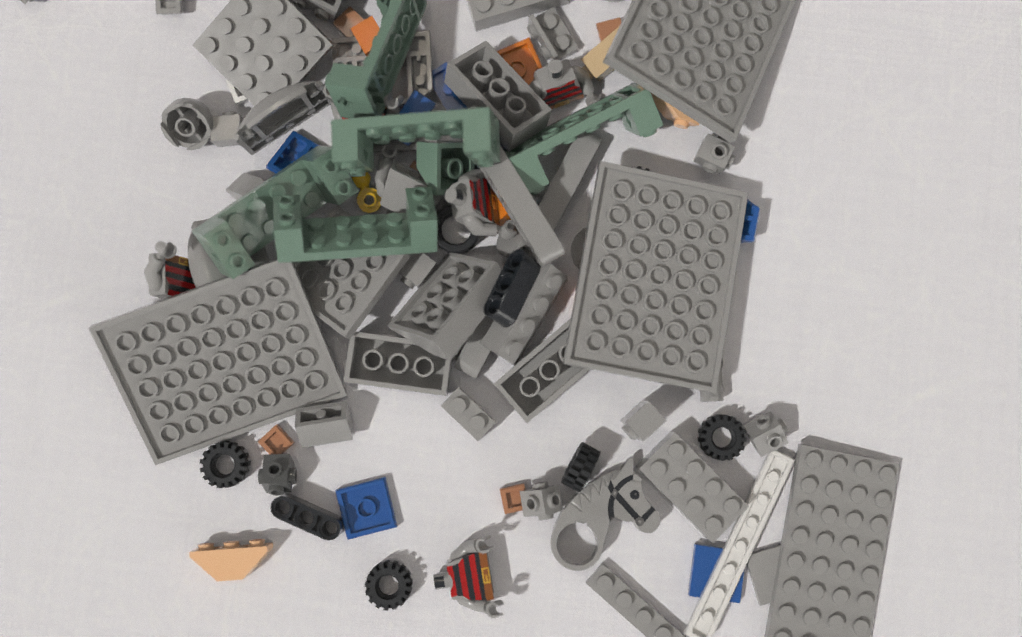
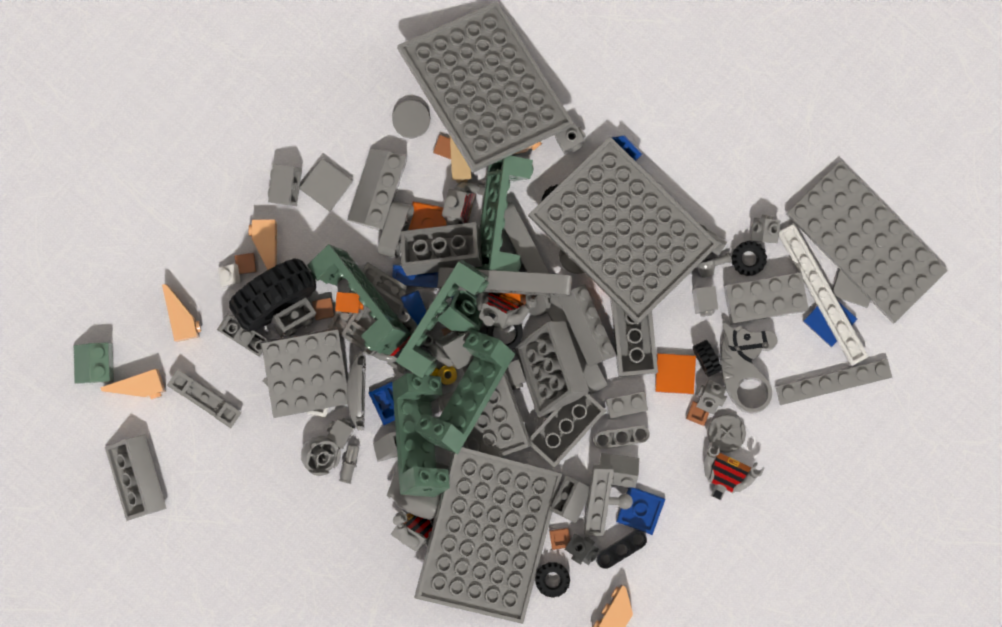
camera: 60 degrees left, 0 degrees up
(203, 163) = (349, 464): none -> light grey axle
(343, 456) = (600, 498): none -> light grey plate
(384, 600) = (686, 528): black tyre -> none
(390, 454) = (625, 469): none -> light grey brick
(418, 427) = (630, 433): none -> light grey beam
(500, 32) = (397, 221): none -> light grey beam
(512, 288) = (570, 323): black beam -> none
(514, 544) = (727, 432): none -> light grey tile
(540, 444) = (675, 373): none -> orange tile
(552, 35) = (422, 185): light grey bracket -> none
(680, 398) = (707, 267): none -> light grey bar

